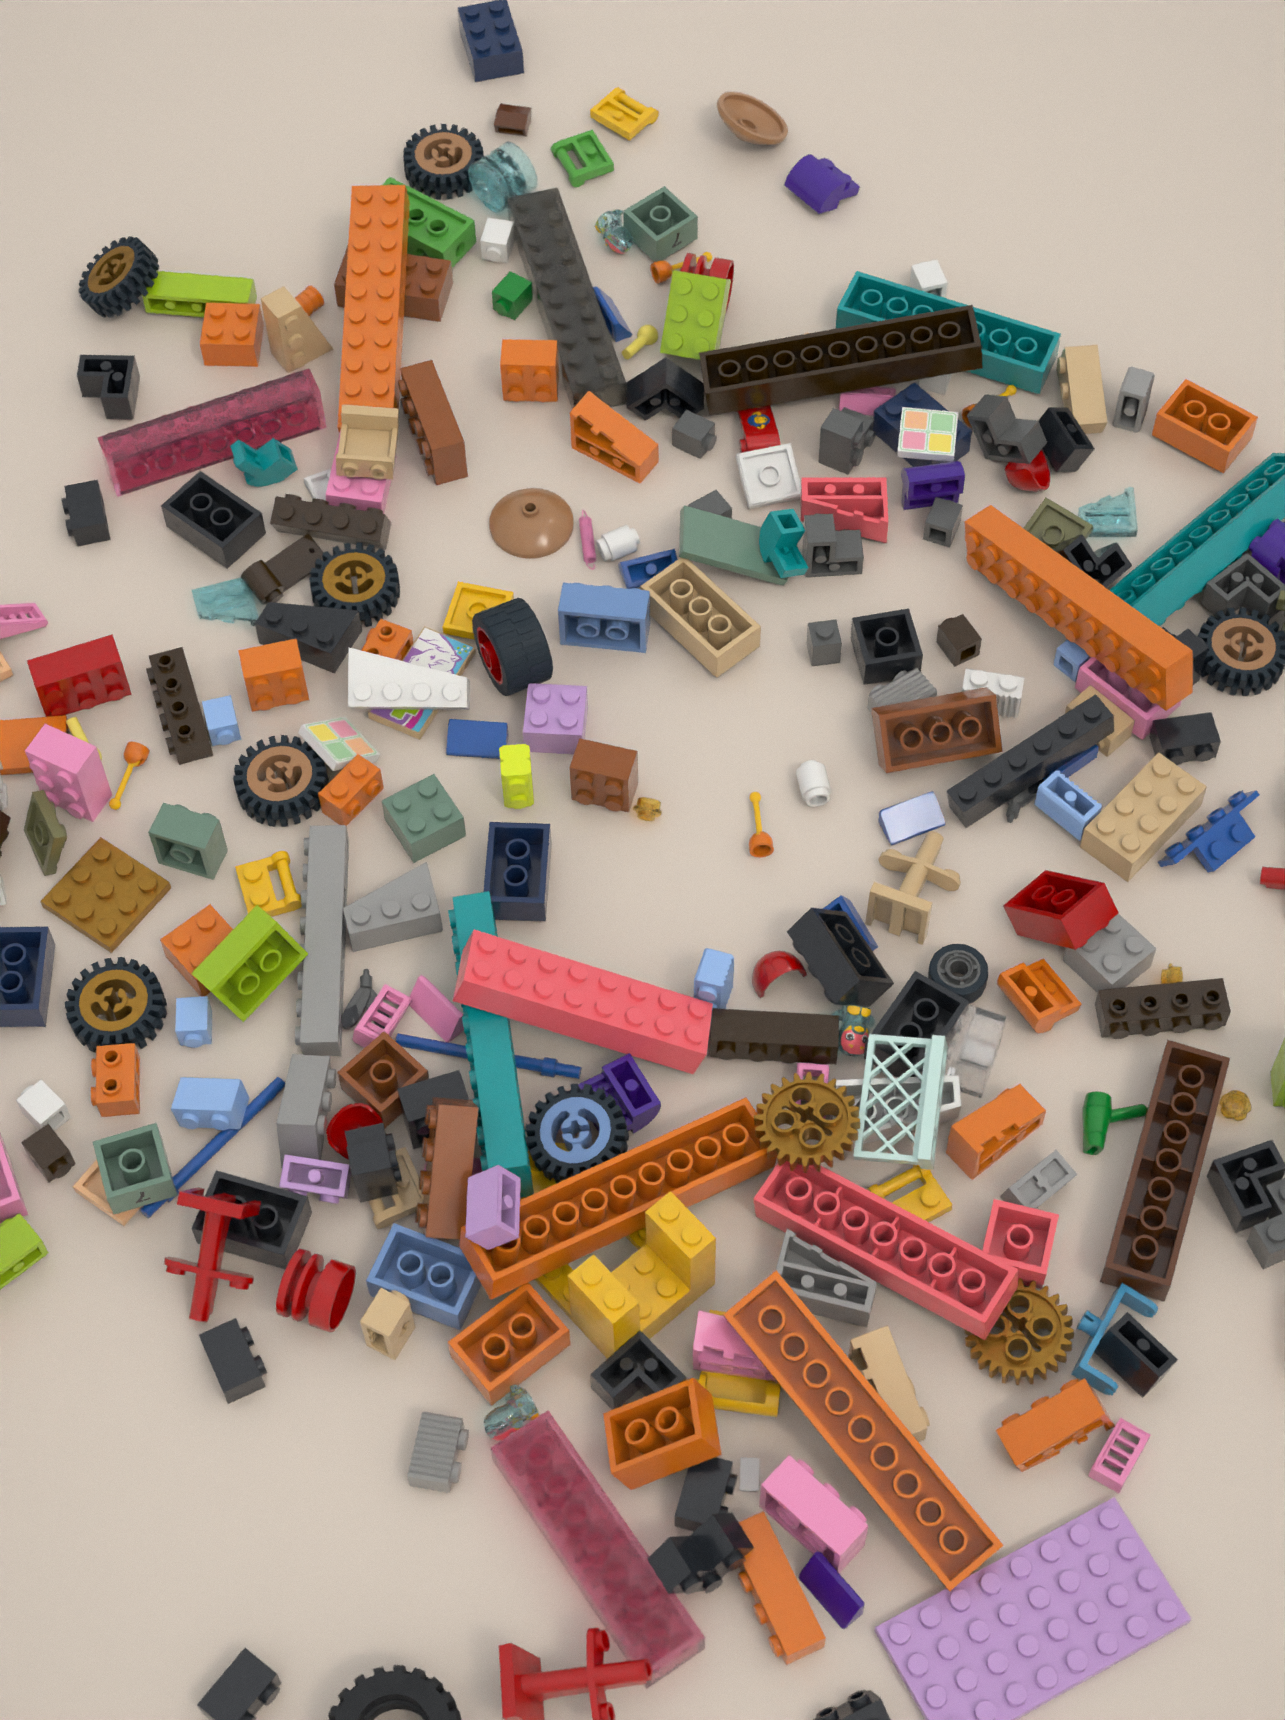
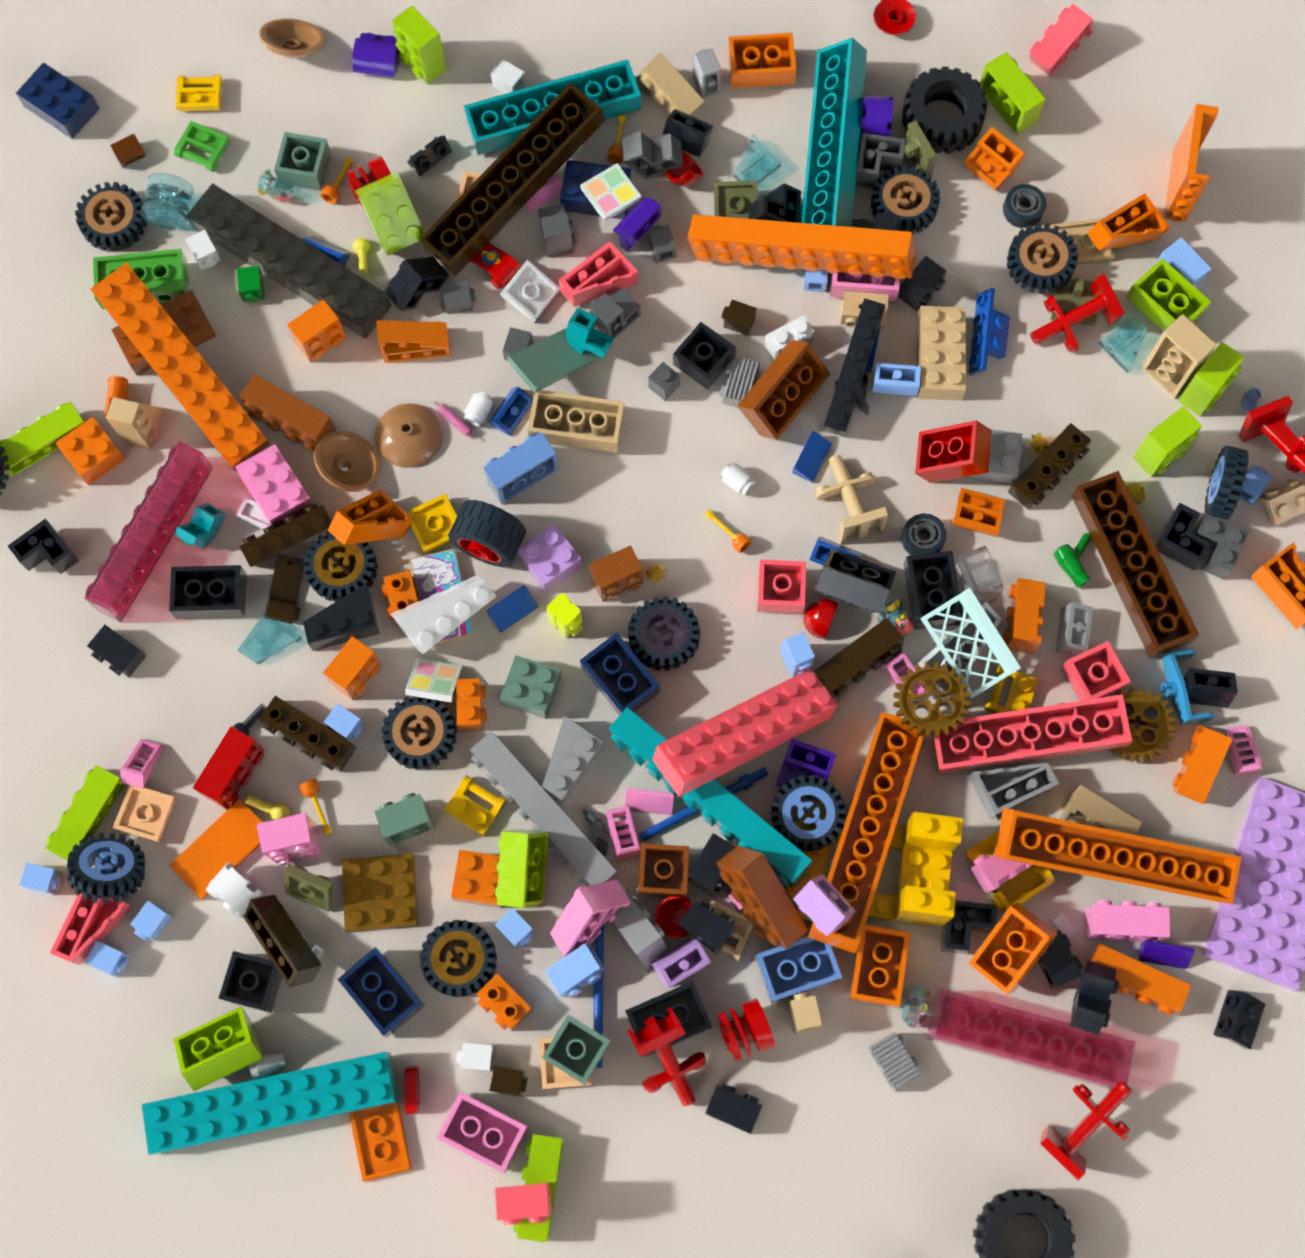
camera: 40 degrees left, 15 degrees up
(131, 661) = (245, 726): none -> black bar
(270, 1051) = (587, 913): none -> bright pink wedge
(367, 442) = (267, 465): tan panel -> none
(415, 558) = (370, 520): none -> orange wedge
(455, 490) = (352, 454): none -> medium nougat dish
(588, 884) = (667, 613): none -> wheel
(759, 909) = (781, 586): none -> coral brick
(788, 300) = (433, 153): none -> black hinge
(863, 193) = (419, 45): none -> lime brick

